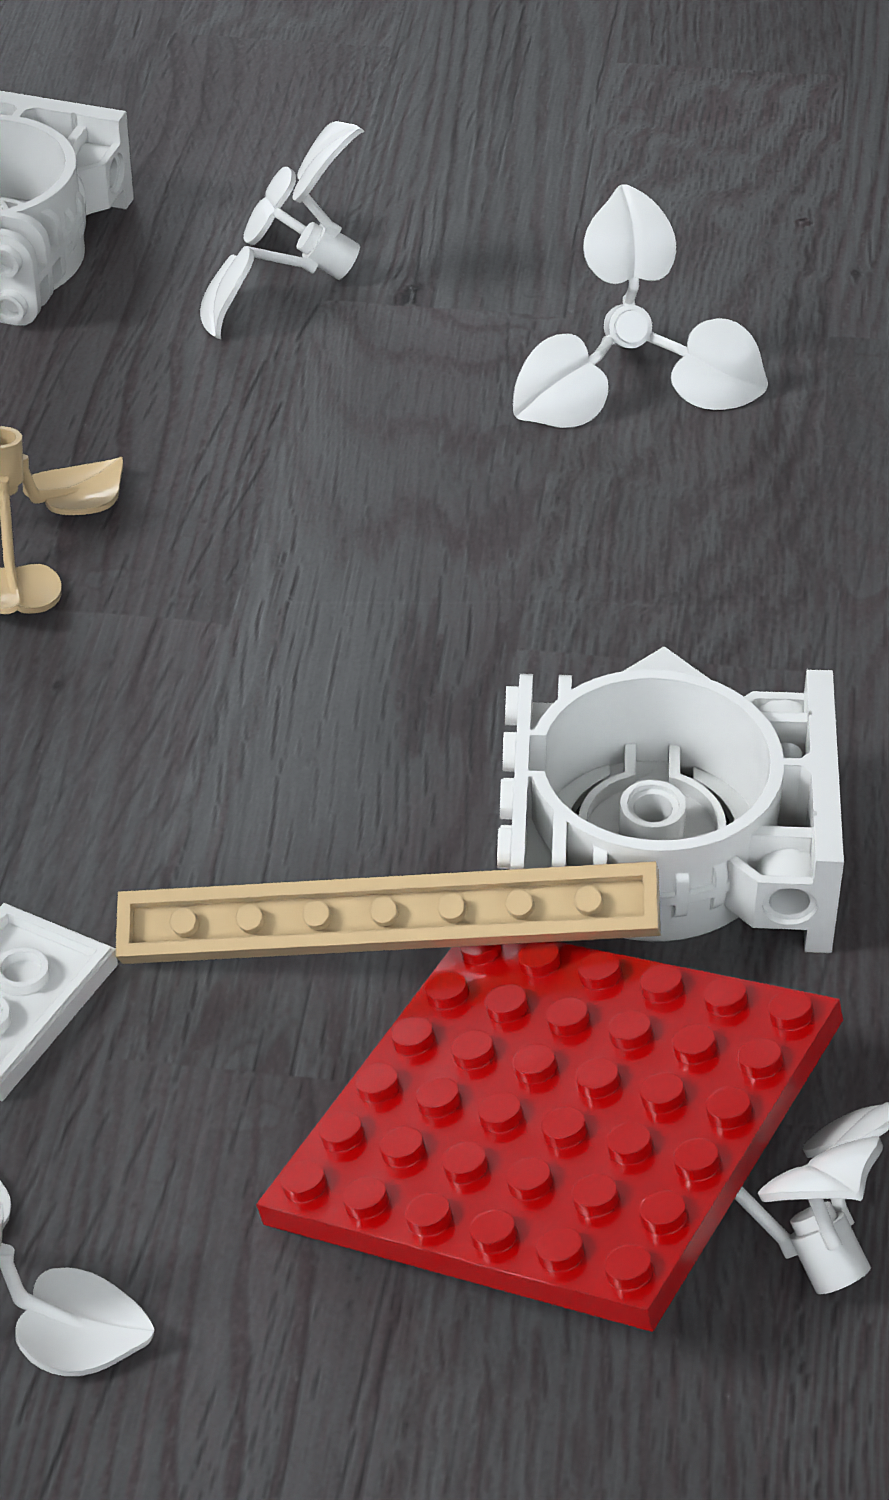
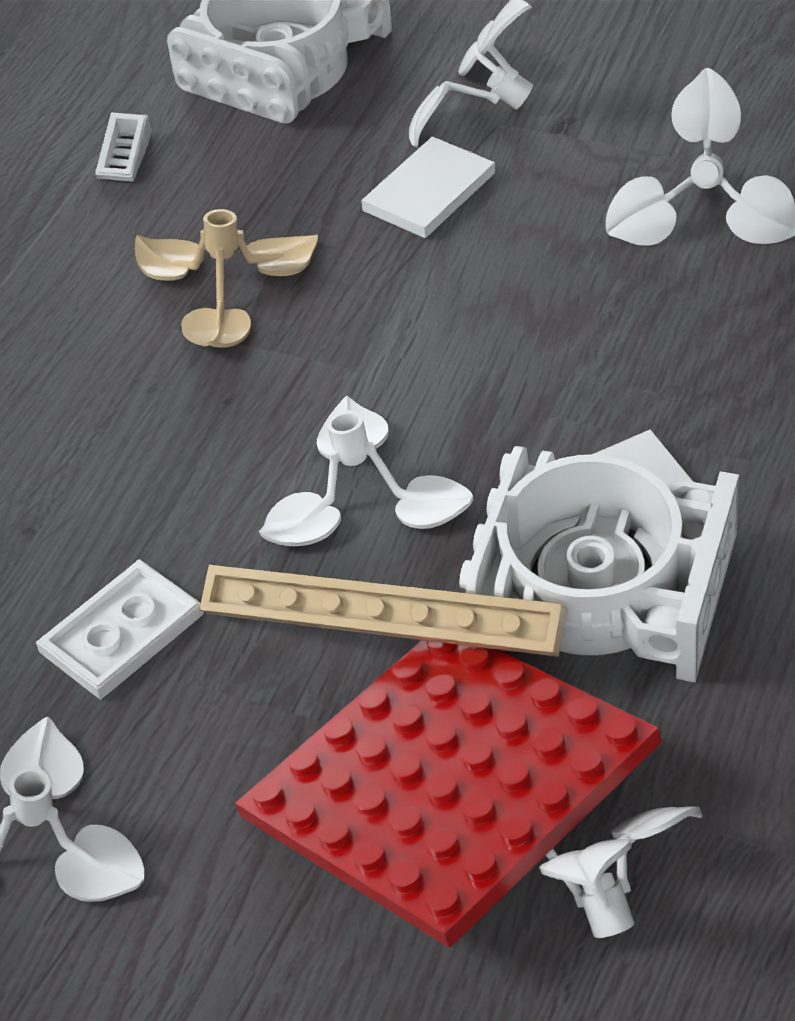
camera: 20 degrees right, 5 degrees up
(254, 384) = (428, 187): none -> white tile
(273, 701) = (349, 437): none -> white plant

